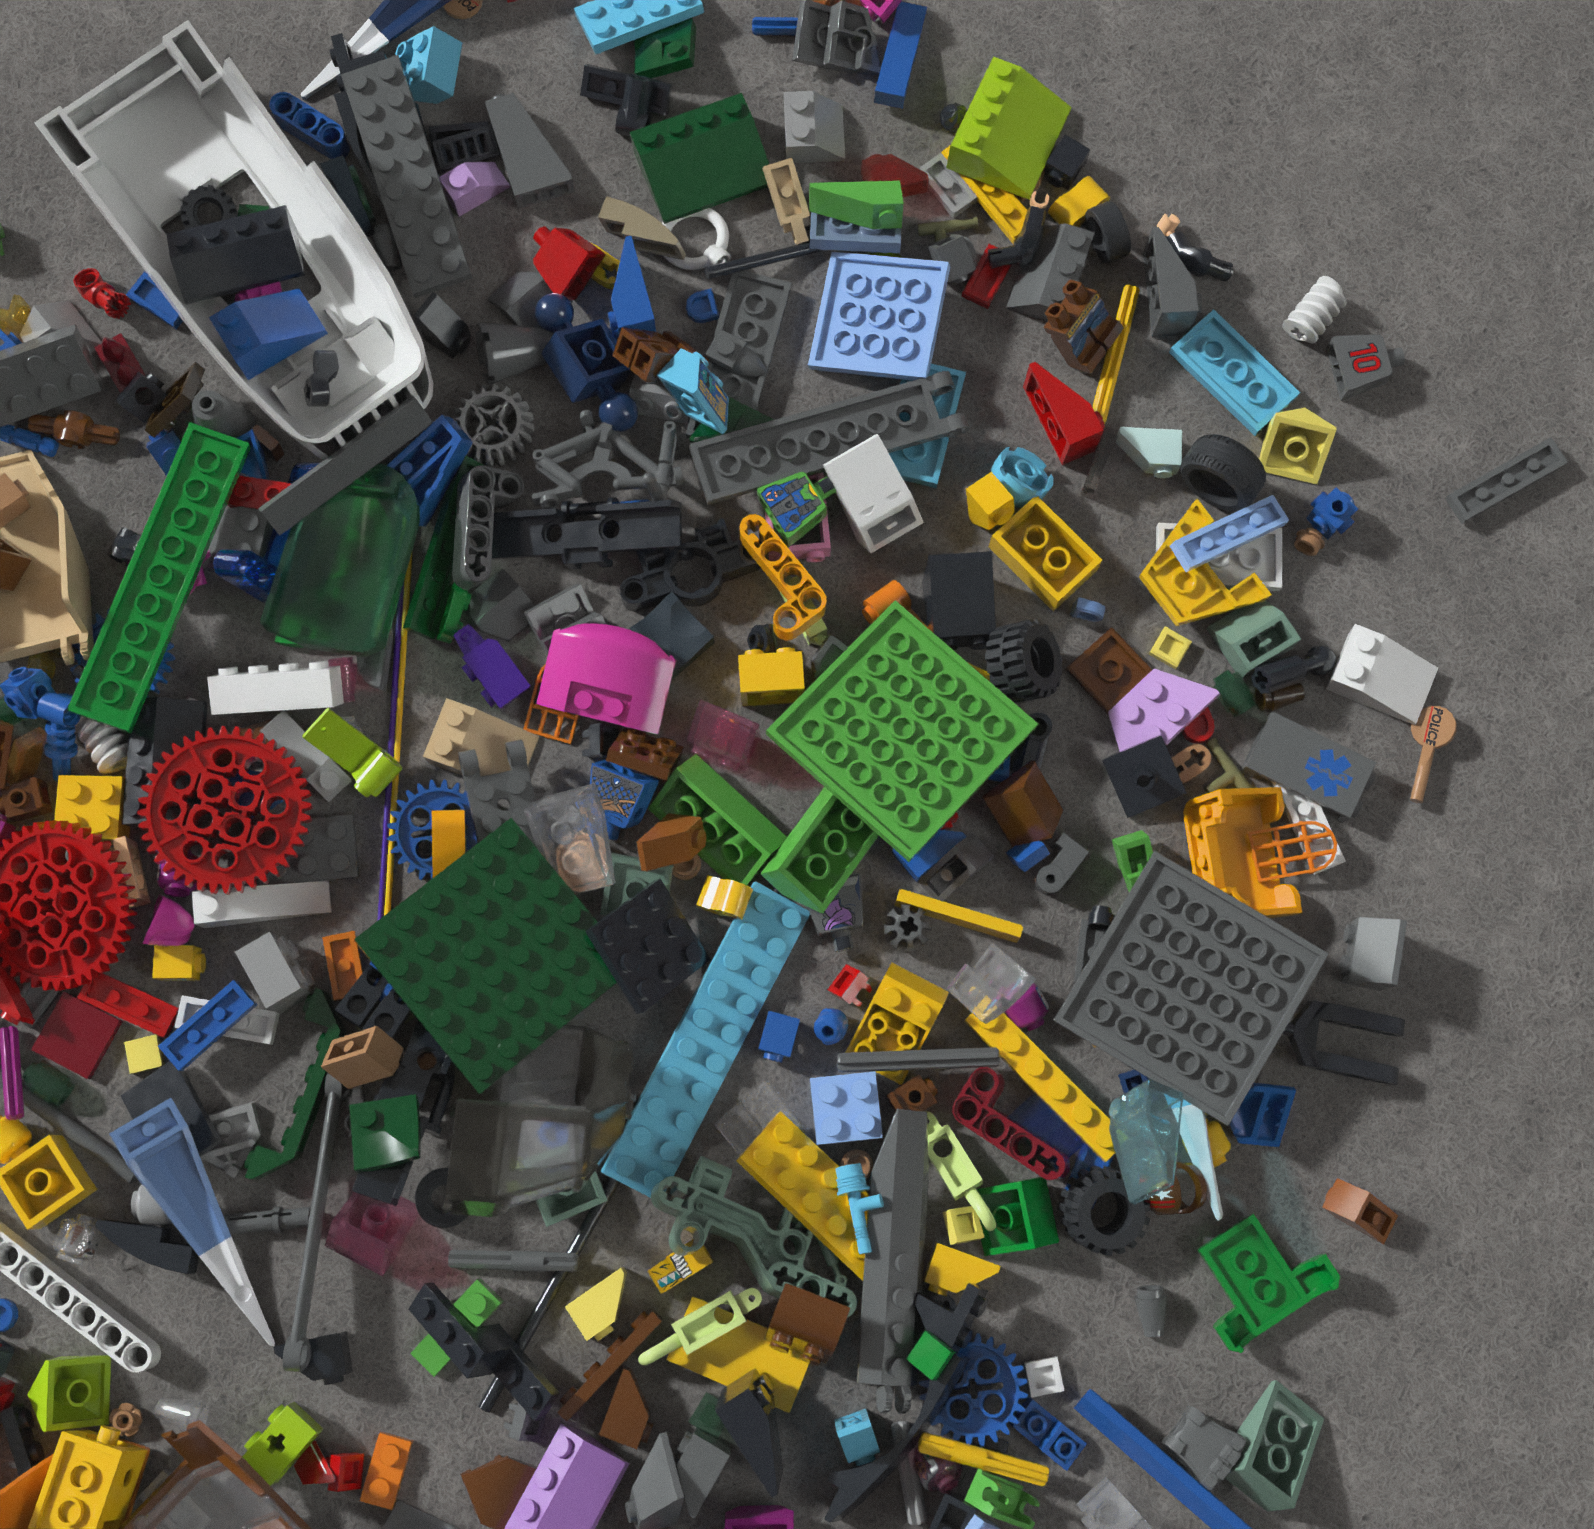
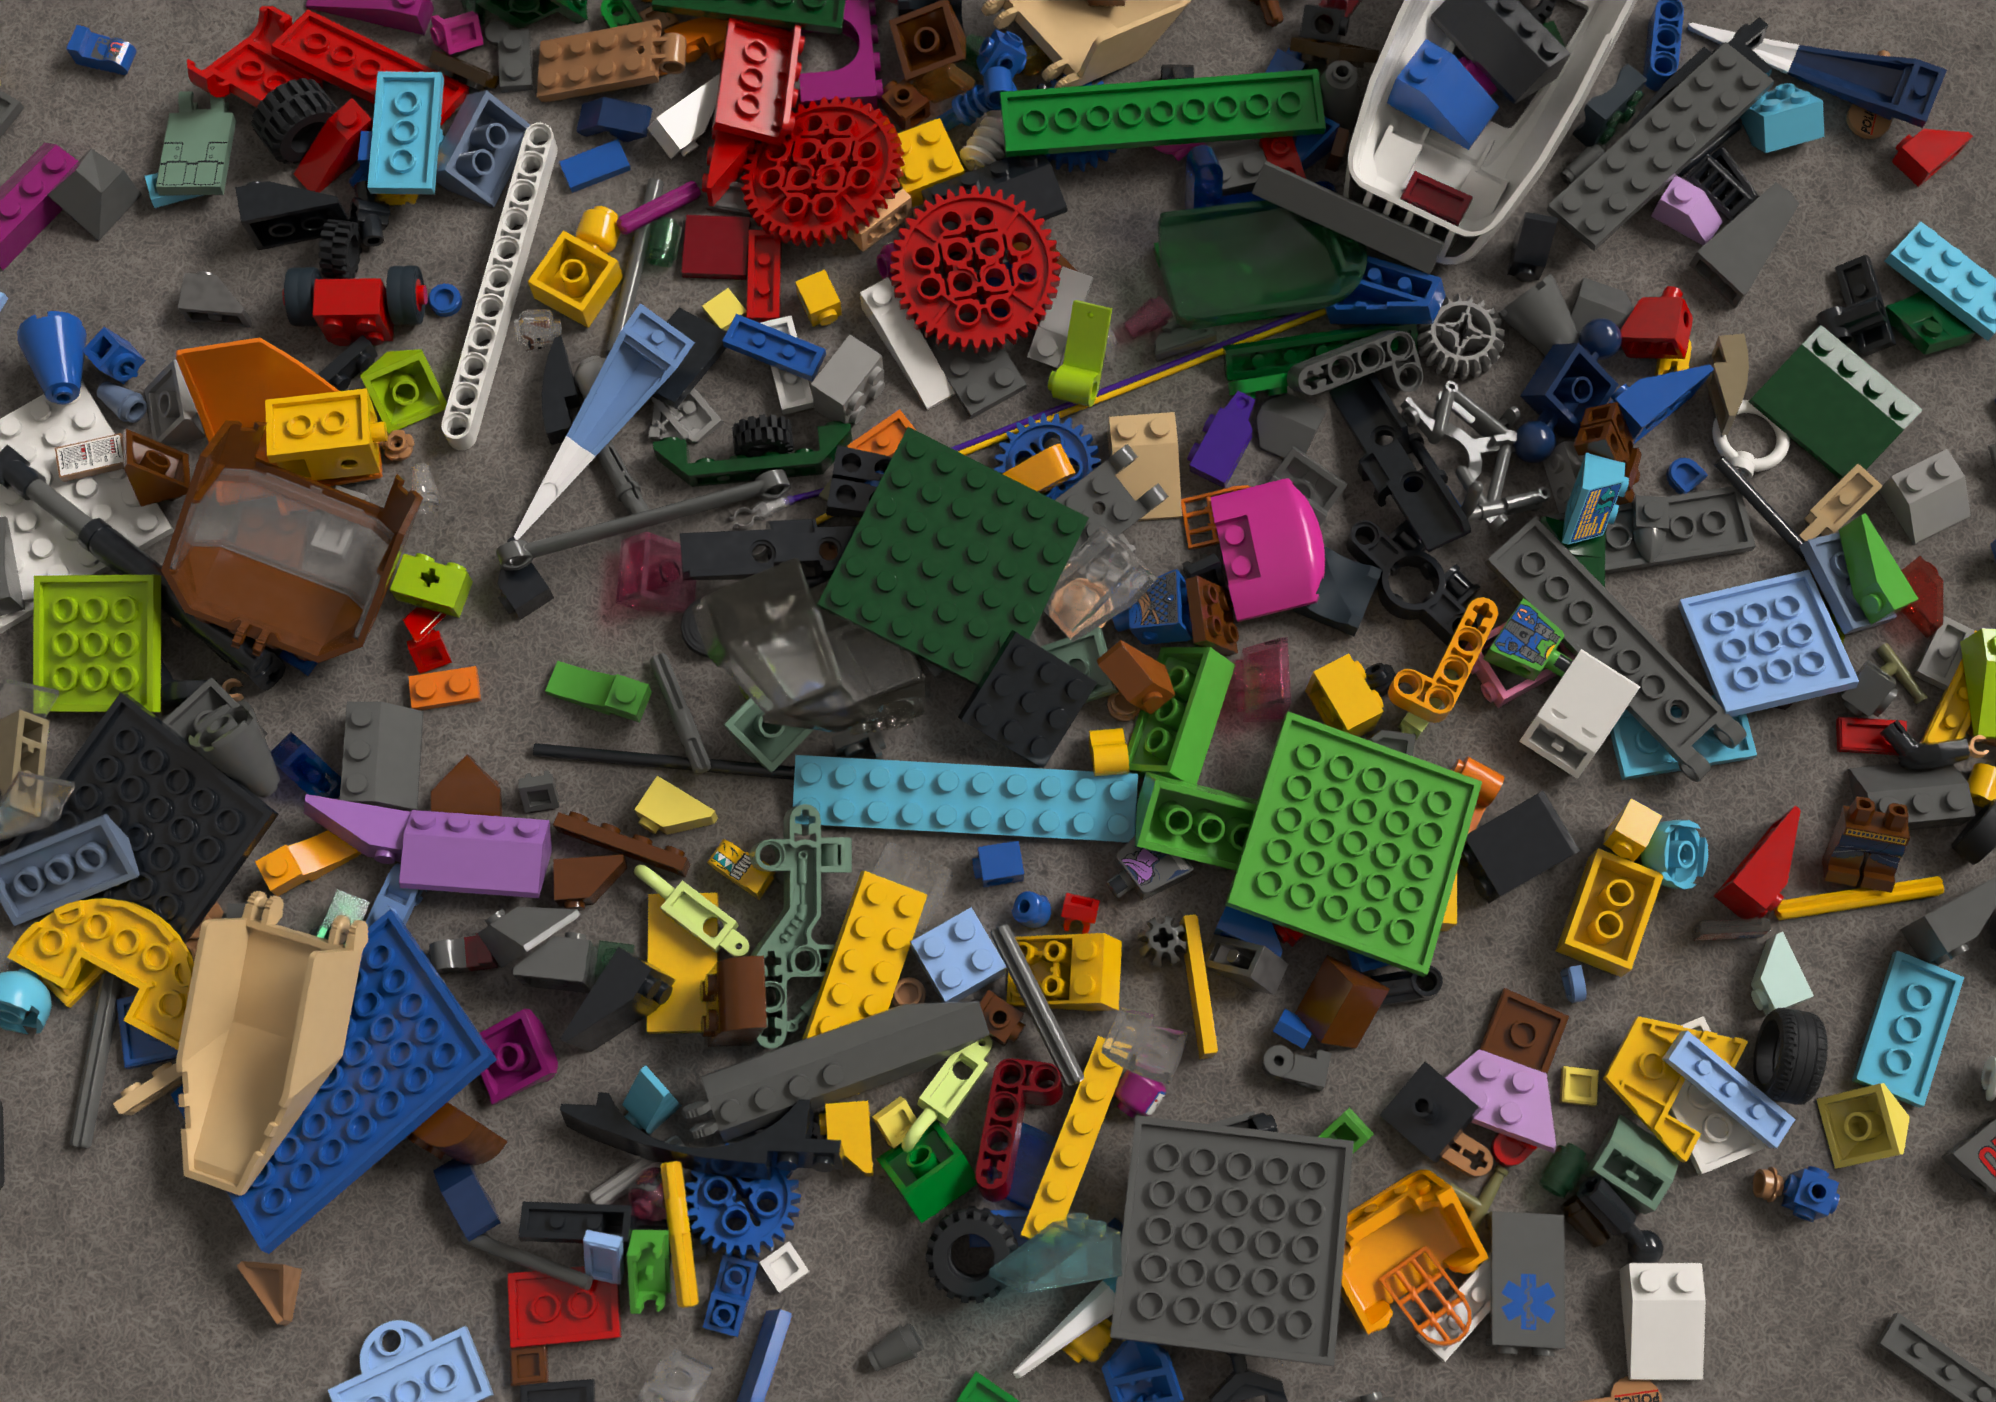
camera: 65 degrees right, 5 degrees down
(169, 924) = (848, 272): dark pink hat -> none
(275, 689) = (1108, 262): white brick -> none
(288, 1073) = (762, 435): none -> black tyre
(317, 385) = (1422, 162): black piece -> none
(360, 382) = (1437, 198): none -> dark red tile
(362, 1057) = (805, 490): medium nougat brick -> none
(385, 1132) = (745, 538): dark green plate -> none
(483, 1351) = (585, 721): black bracket -> none
(852, 1182) = (886, 989): medium azure piece -> none
(930, 1355) = (755, 1133): green tile -> none
(1024, 660) = (1486, 936): black tyre -> none
(1170, 1200) = (1015, 1310): reddish brown helmet -> none

